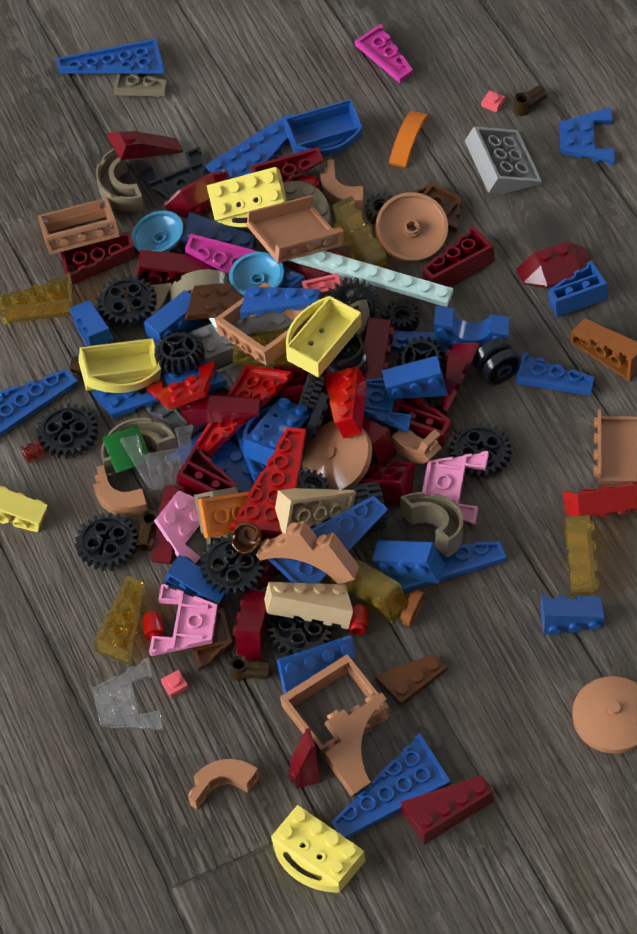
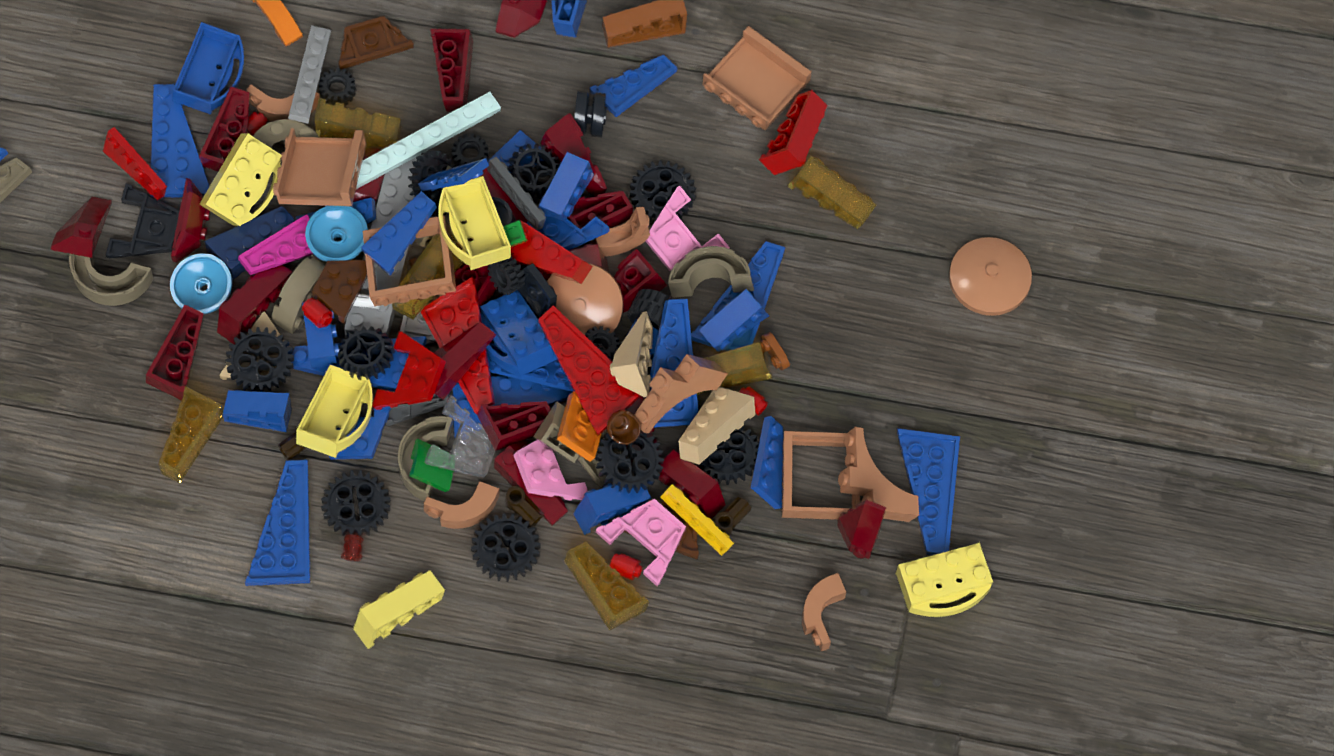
camera: 65 degrees left, 10 degrees up
(80, 235) = (157, 353): nougat window -> none
(117, 701) = (679, 644): clear wing -> none
(174, 683) = (694, 586): coral plate -> none
(180, 300) = (317, 312): none -> red brick
(211, 143) = (131, 162): none -> red wing
(223, 651) = (697, 520): none -> yellow plate
(322, 283) = (395, 191): coral plate -> none
(339, 366) = (515, 233): none -> green plate
(349, 298) = (454, 176): none -> blue wing
(373, 184) = (309, 74): none -> light grey plate
(380, 359) = (512, 188): none -> dark grey plate
(411, 227) = (384, 77): nougat dish -> none
(411, 678) = (837, 402): reddish brown wing -> none
(446, 807) = (981, 462): dark red wedge -> none
(453, 330) = (543, 111): blue brick -> none
(571, 614) = (879, 239): blue wedge -> none

